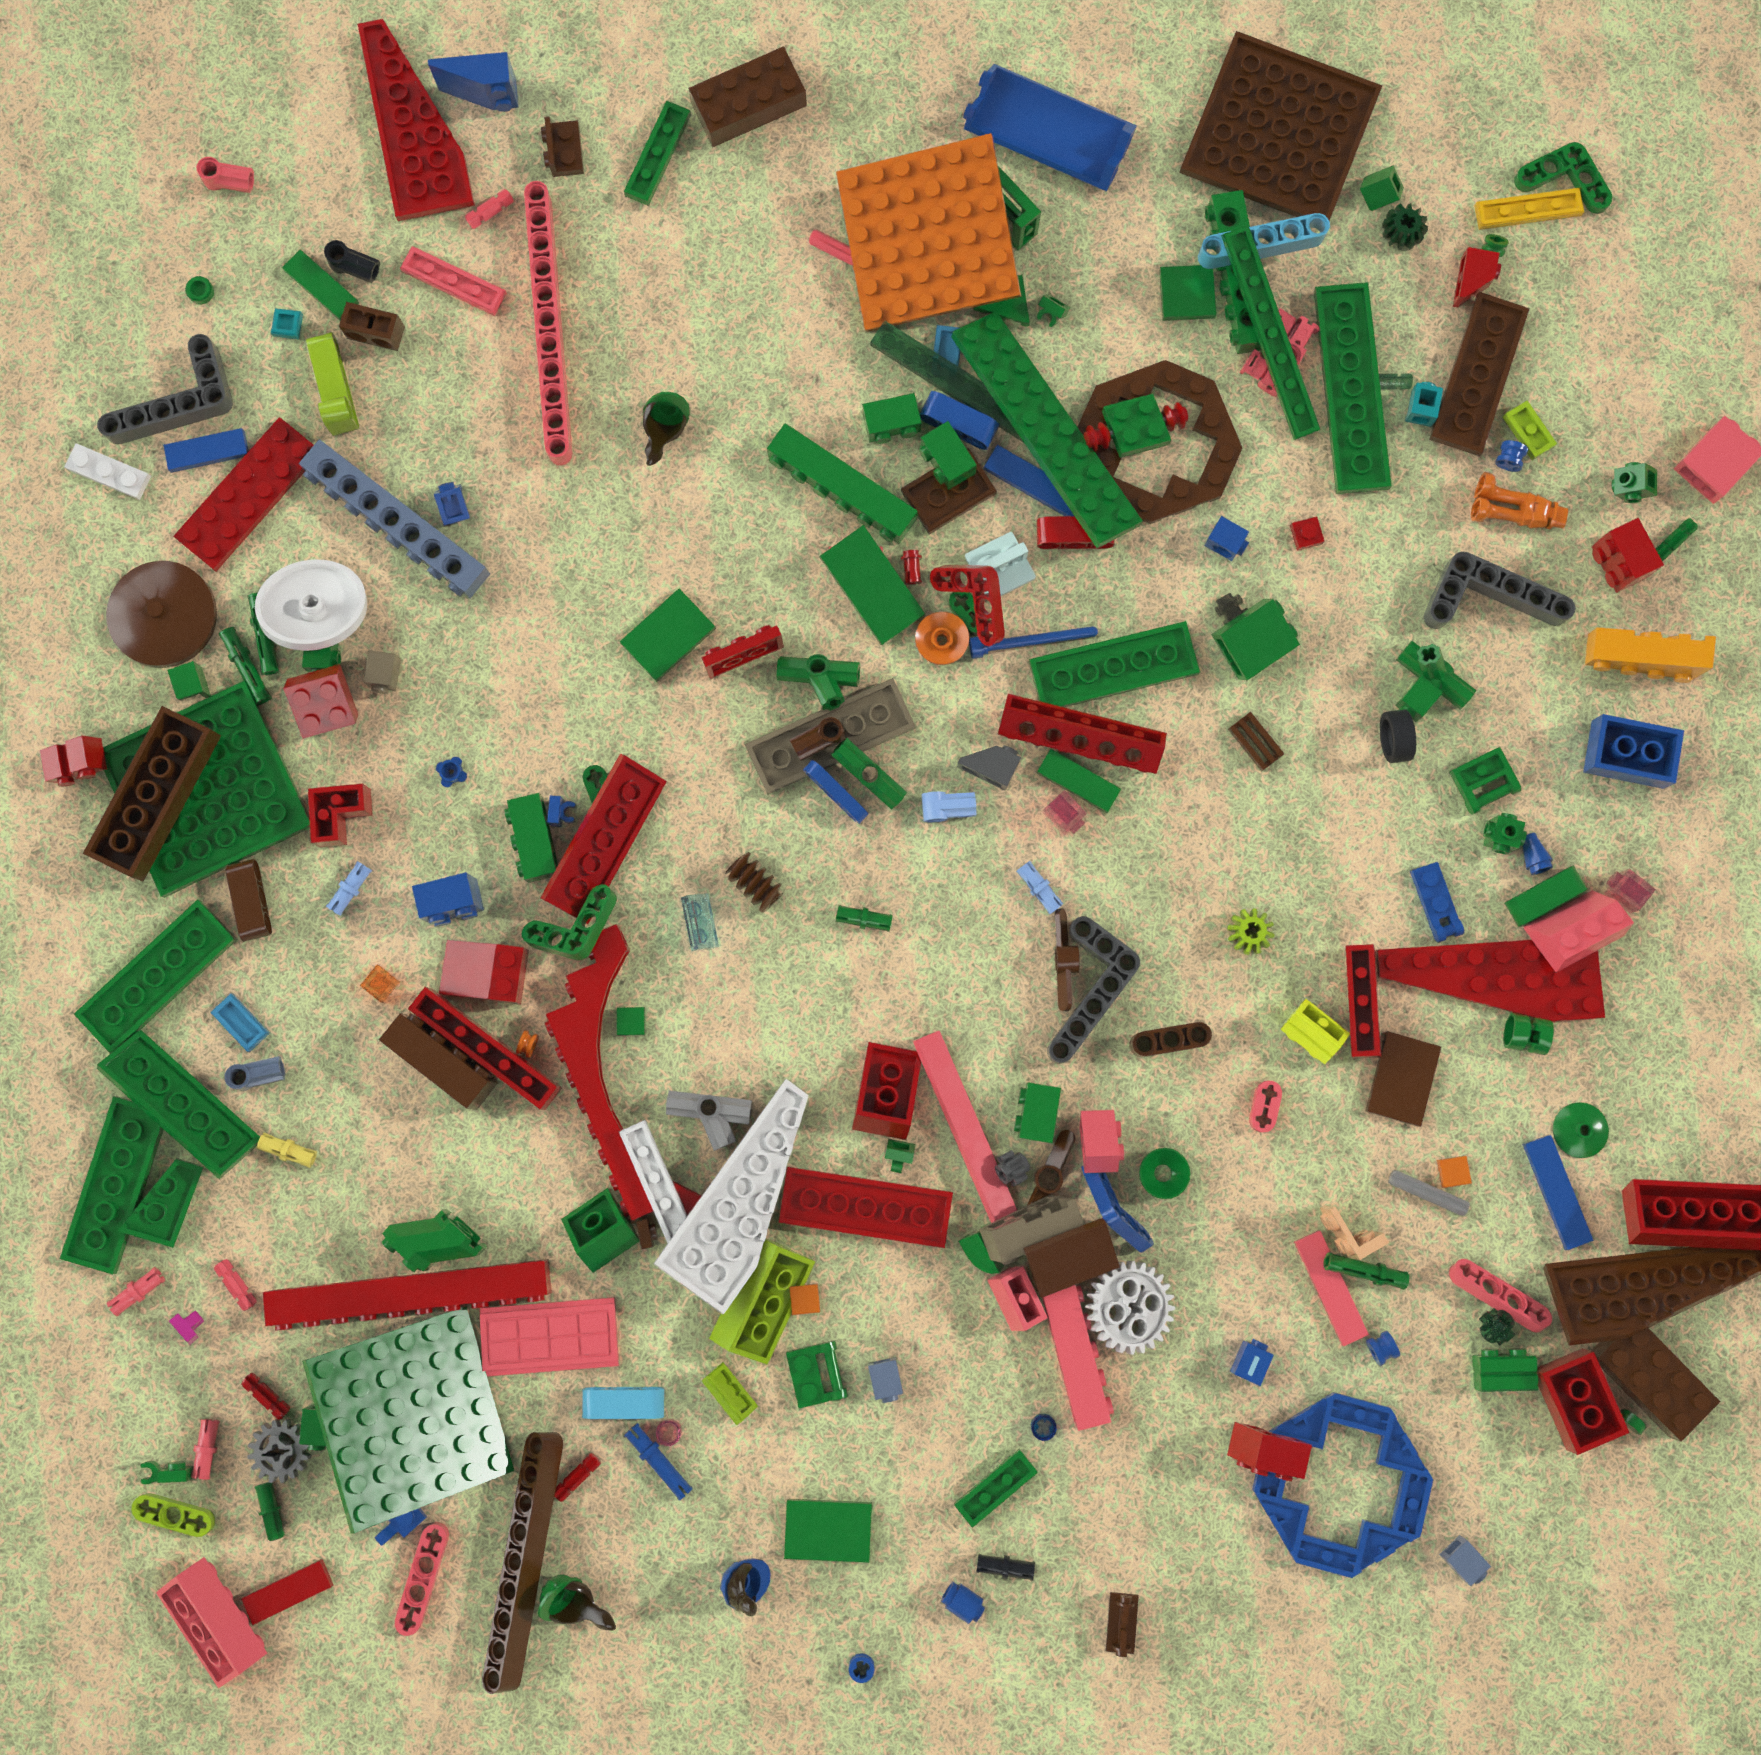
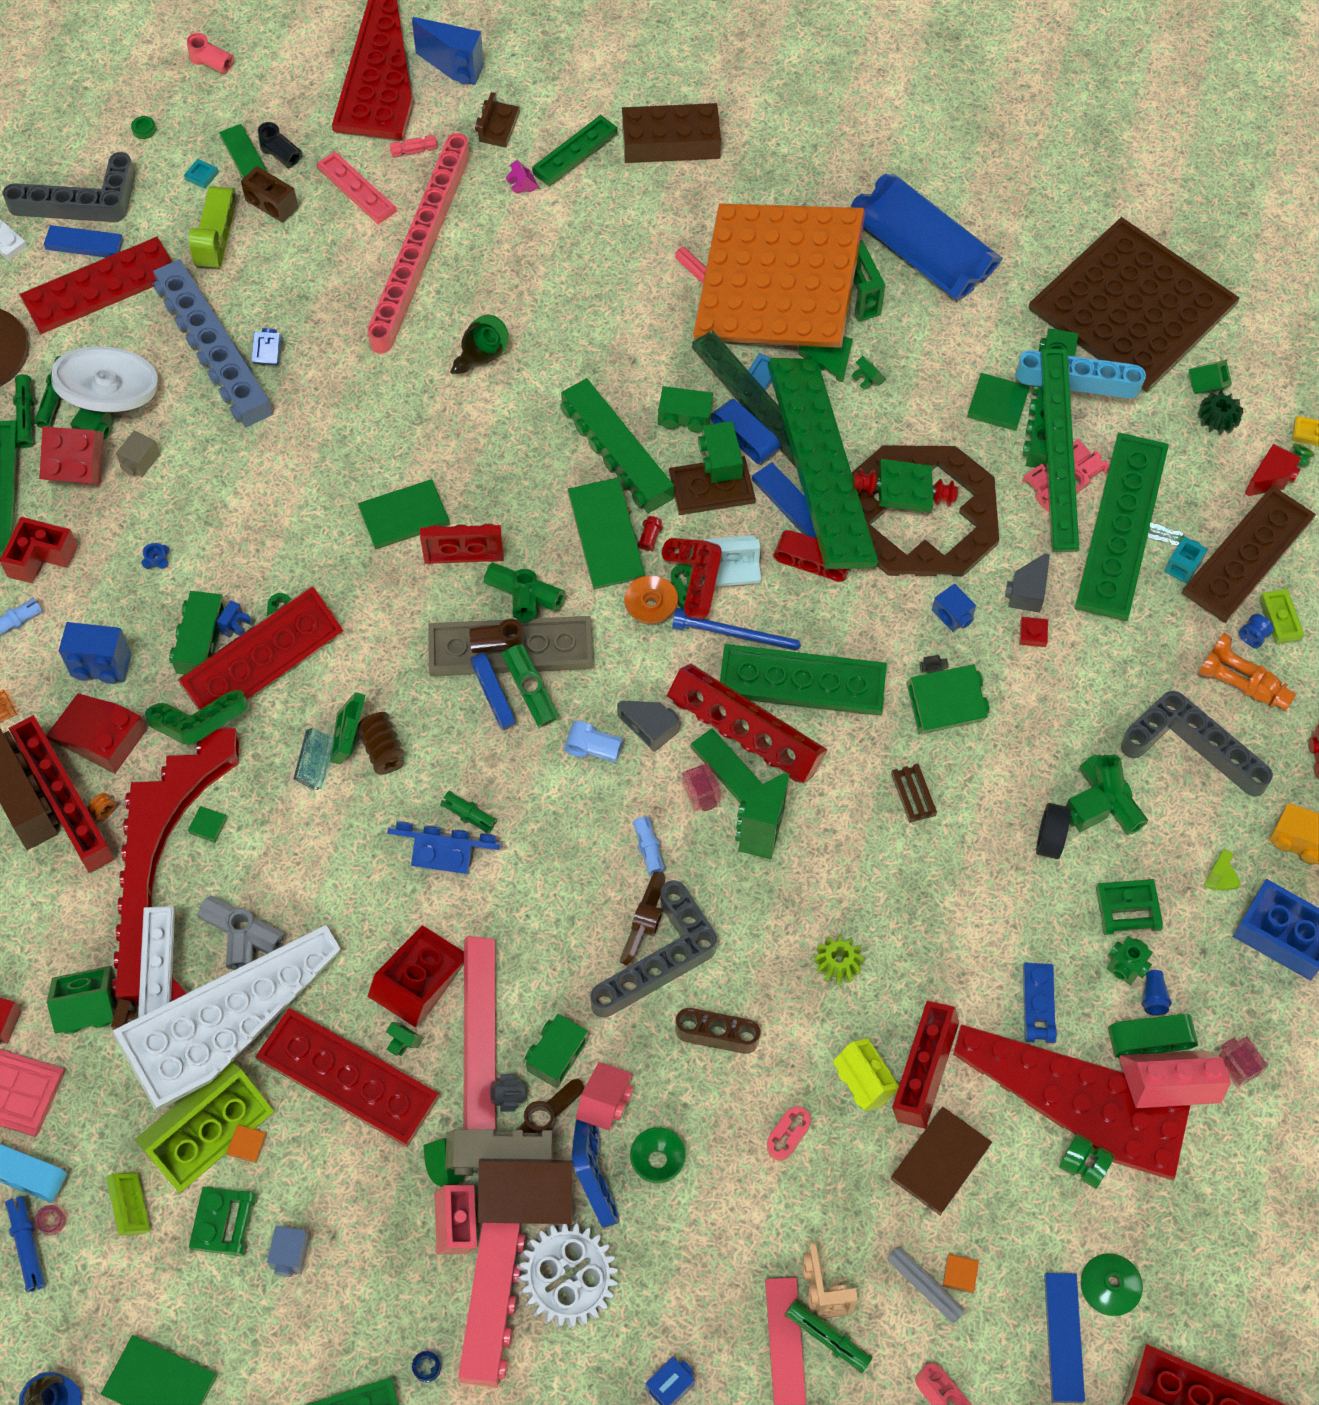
camera: 20 degrees right, 20 degrees down
(619, 205) = (522, 177): none -> dark pink tile
(717, 882) = (345, 728): none -> green wing
(857, 961) = (441, 849): none -> blue bracket
(1141, 831) = (761, 817): none -> green slope
(1289, 488) = (1029, 585): none -> dark grey slope
(1556, 716) = (1223, 875): none -> lime tile

